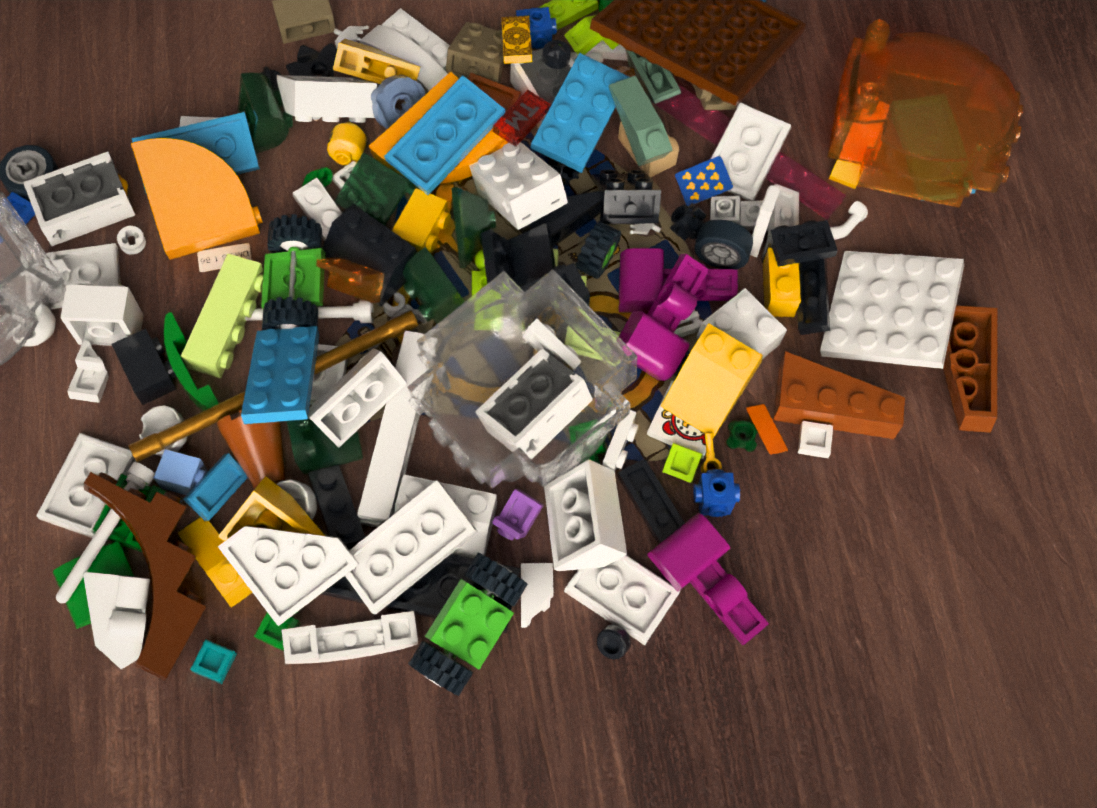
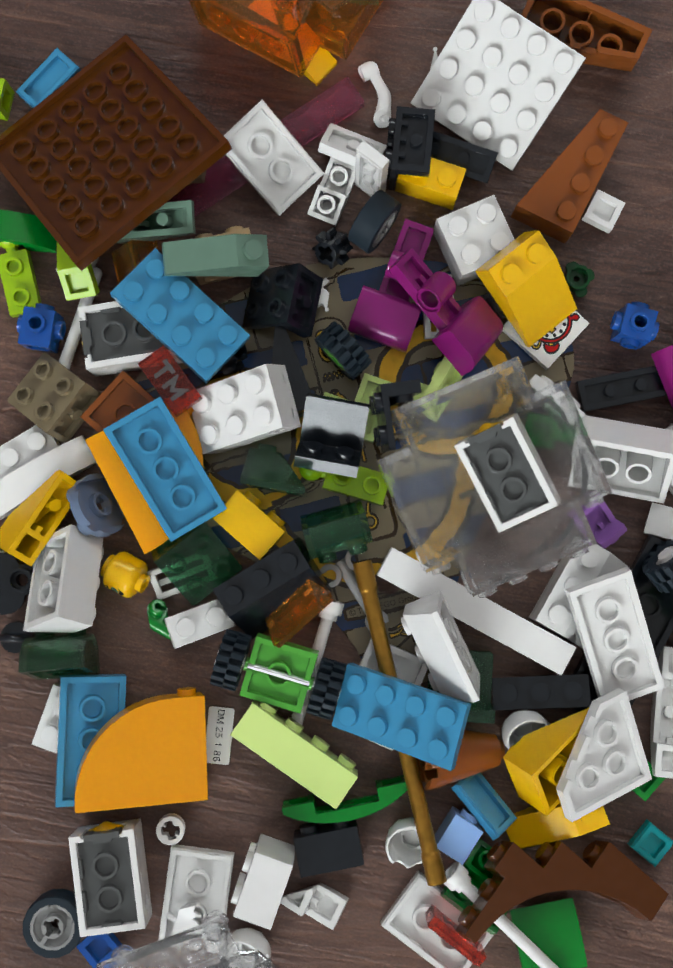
camera: 65 degrees left, 20 degrees up
(78, 499) = (446, 928): none -> clear red tile
(117, 614) = (587, 926): white panel -> none
(516, 39) = (62, 354): tile -> none
(543, 337) = (461, 427): white plate -> none
(556, 54) = (97, 317): black tile -> none
(682, 463) = (591, 346): lime plate -> none
(704, 181) = (286, 214): blue sticker -> none
(710, 454) = (593, 318): yellow hand -> none
(767, 429) = (579, 252): orange sticker -> none

